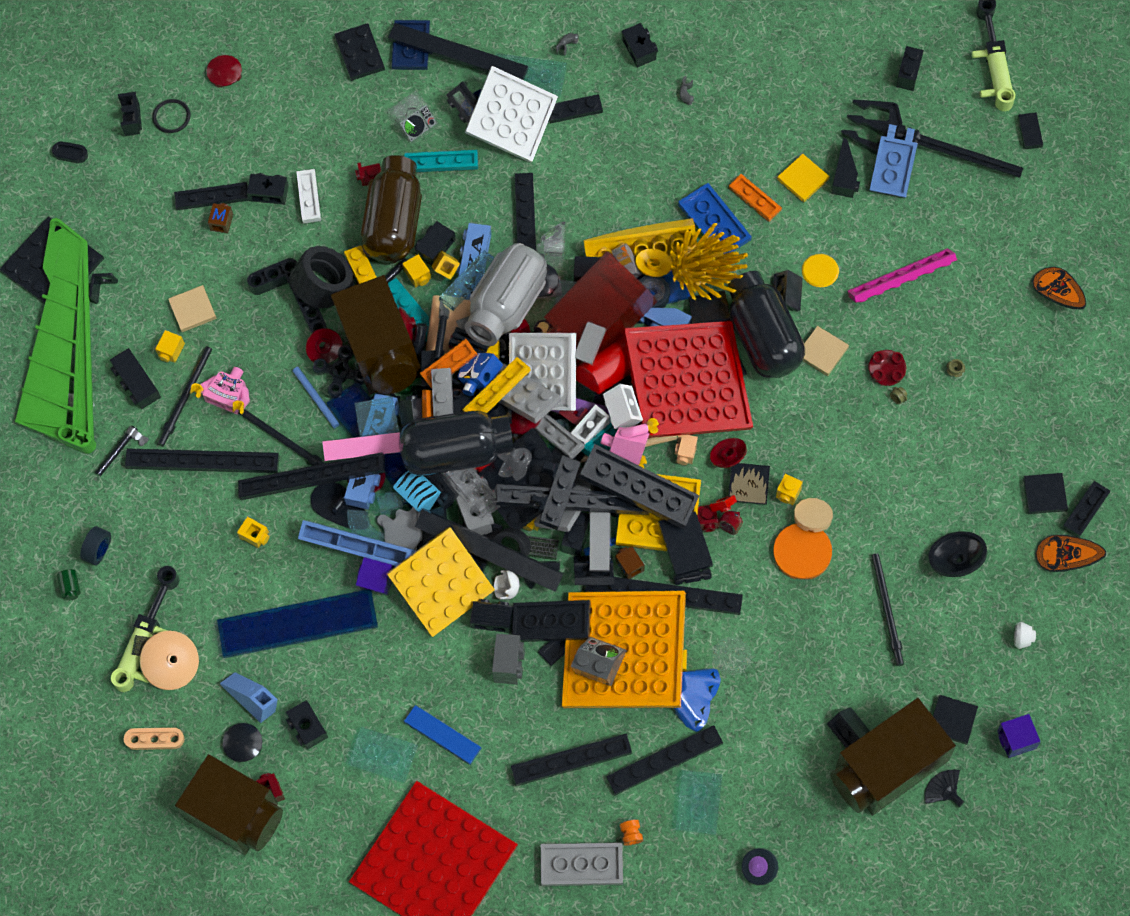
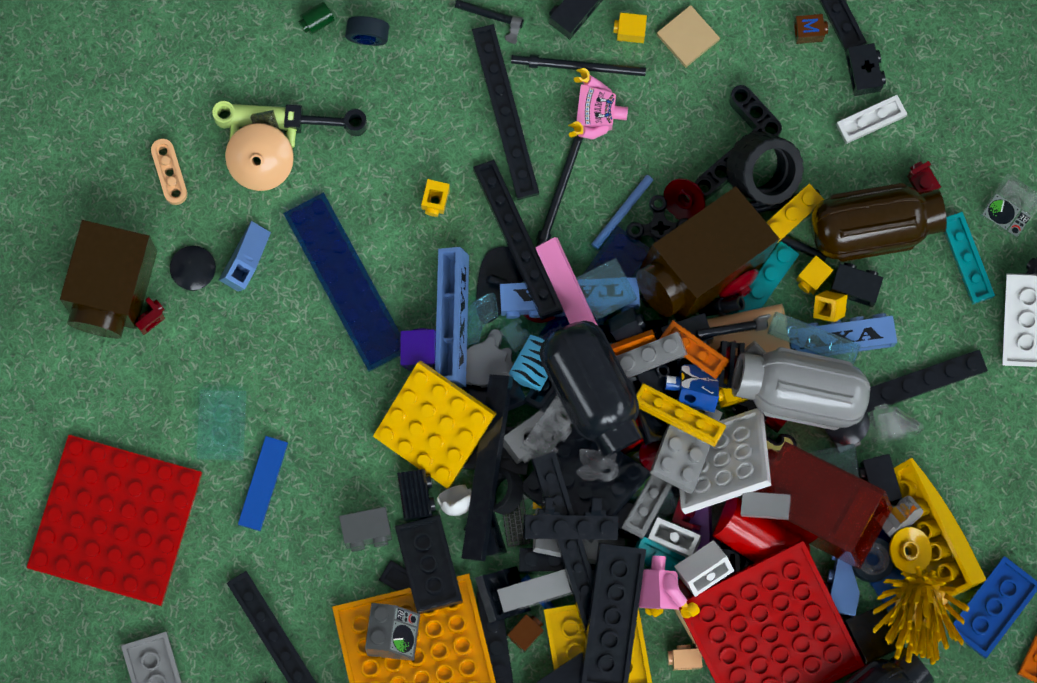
camera: 65 degrees right, 10 degrees up
(301, 714) = (225, 343): black brick -> none

